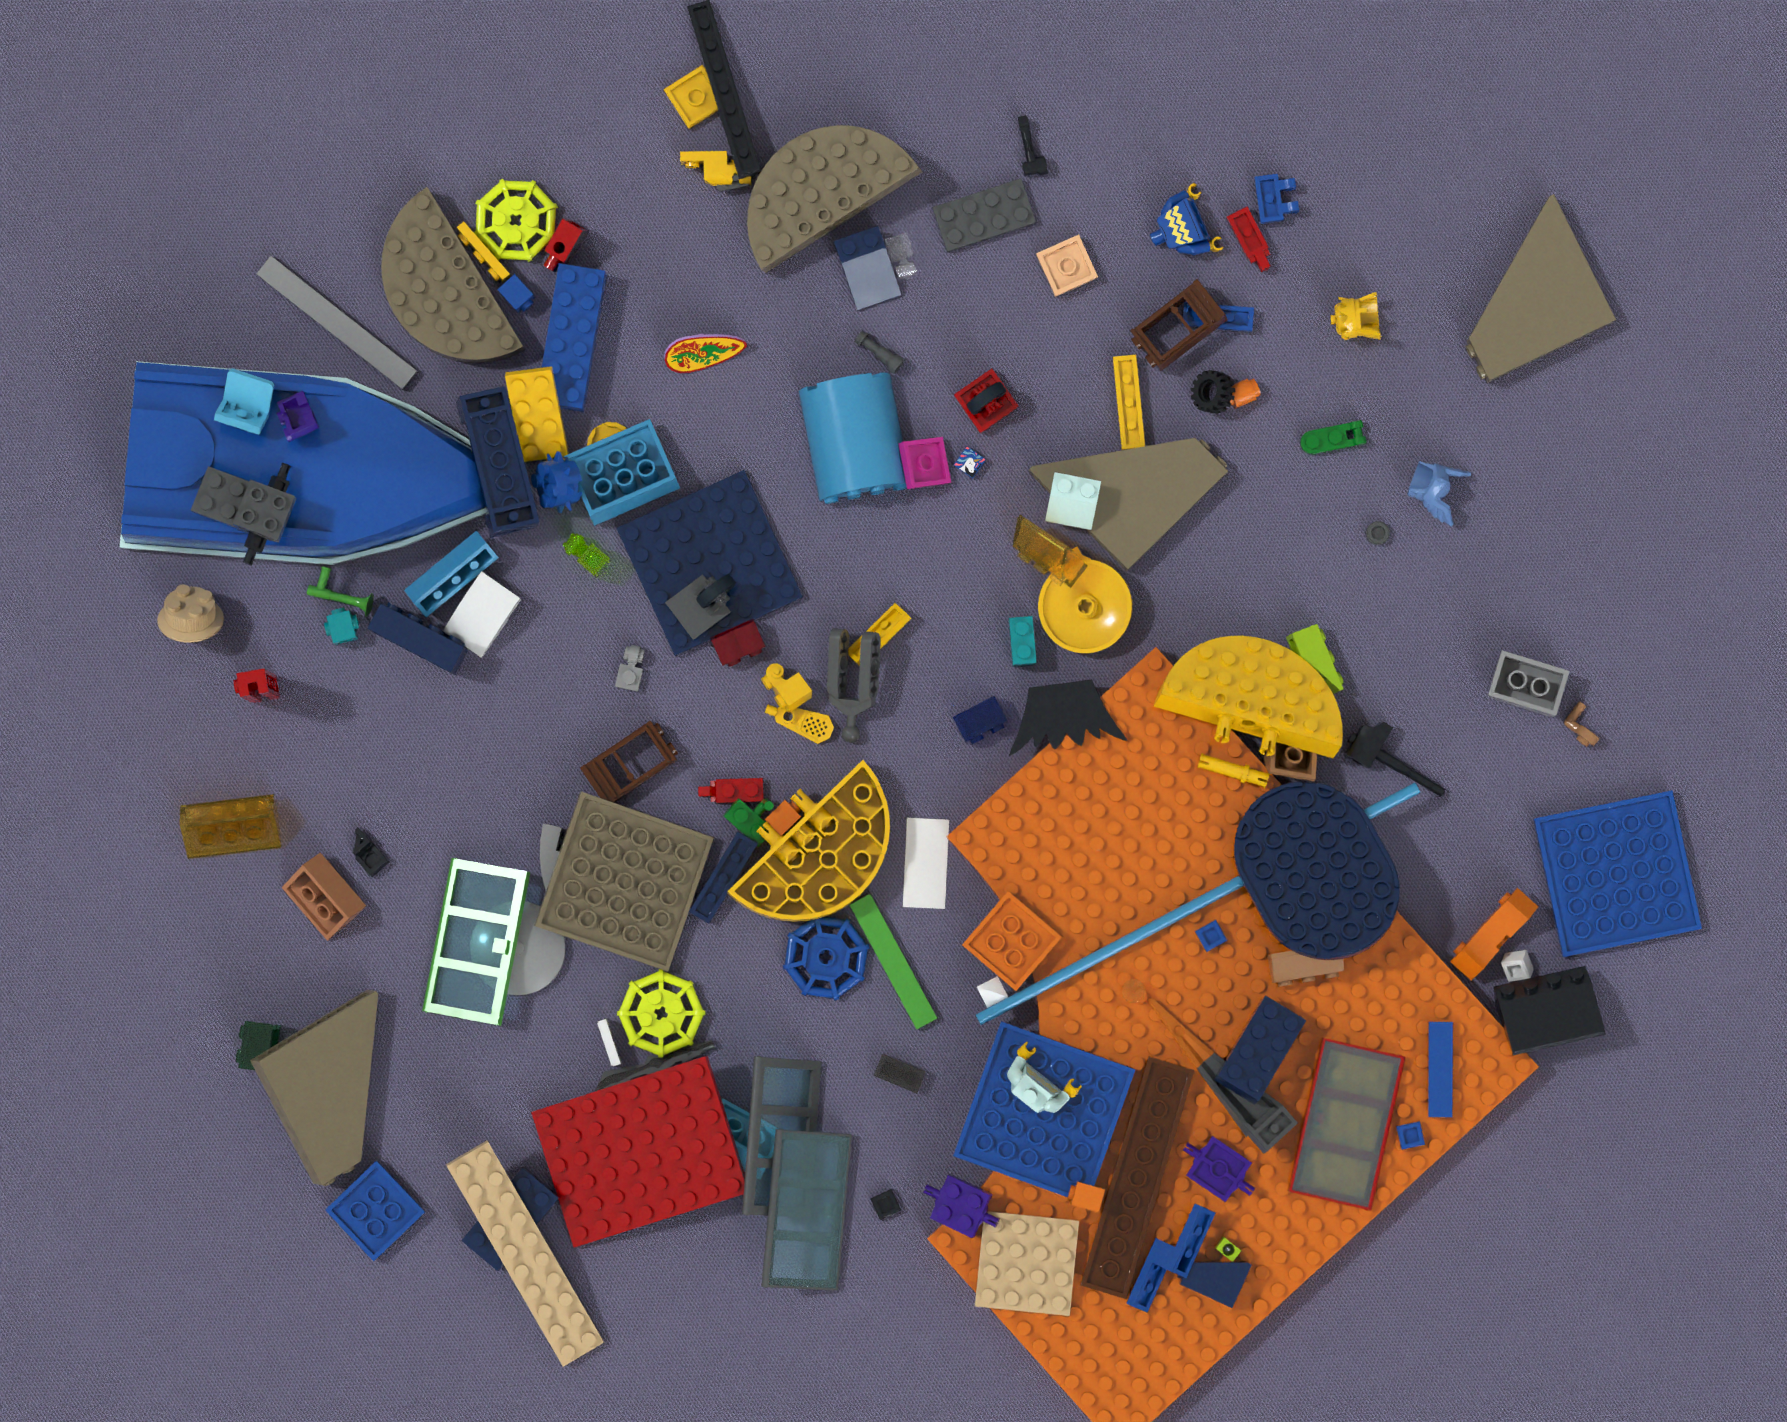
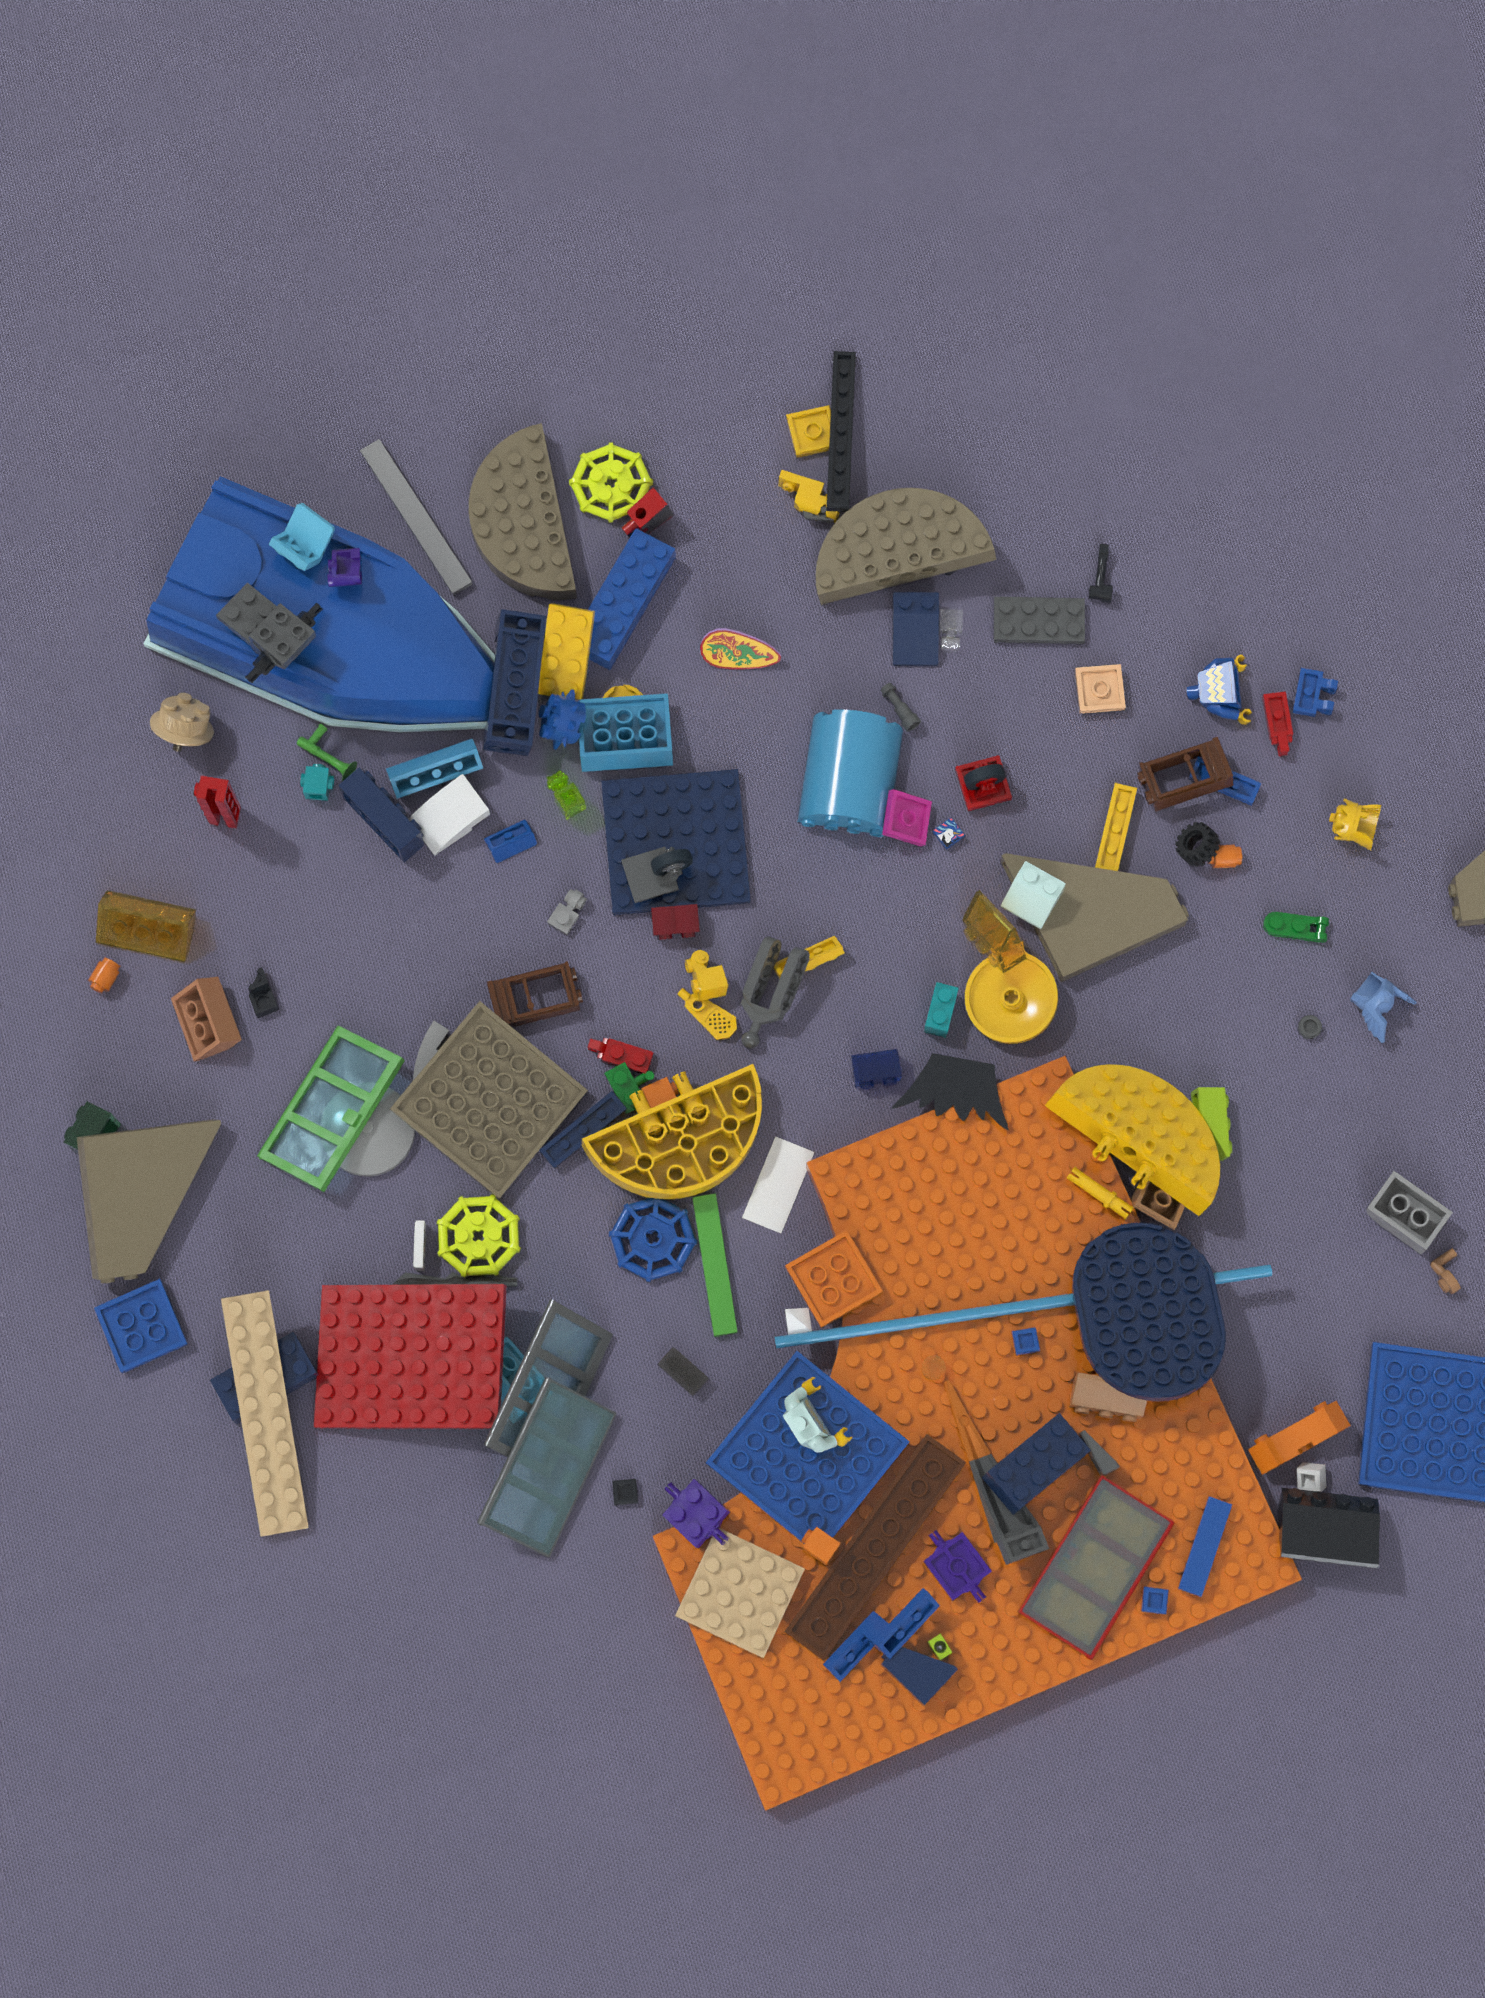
camera: 20 degrees right, 10 degrees down
(209, 889) = (104, 975): none -> orange brick
(482, 253) = (570, 500): yellow plate -> none
(516, 294) = (587, 545): blue brick -> none
(550, 617) = (510, 841): none -> blue slope
(1318, 1023) = (1101, 1459): none -> dark grey slope
(1367, 745) = (1234, 1219): black piece -> none

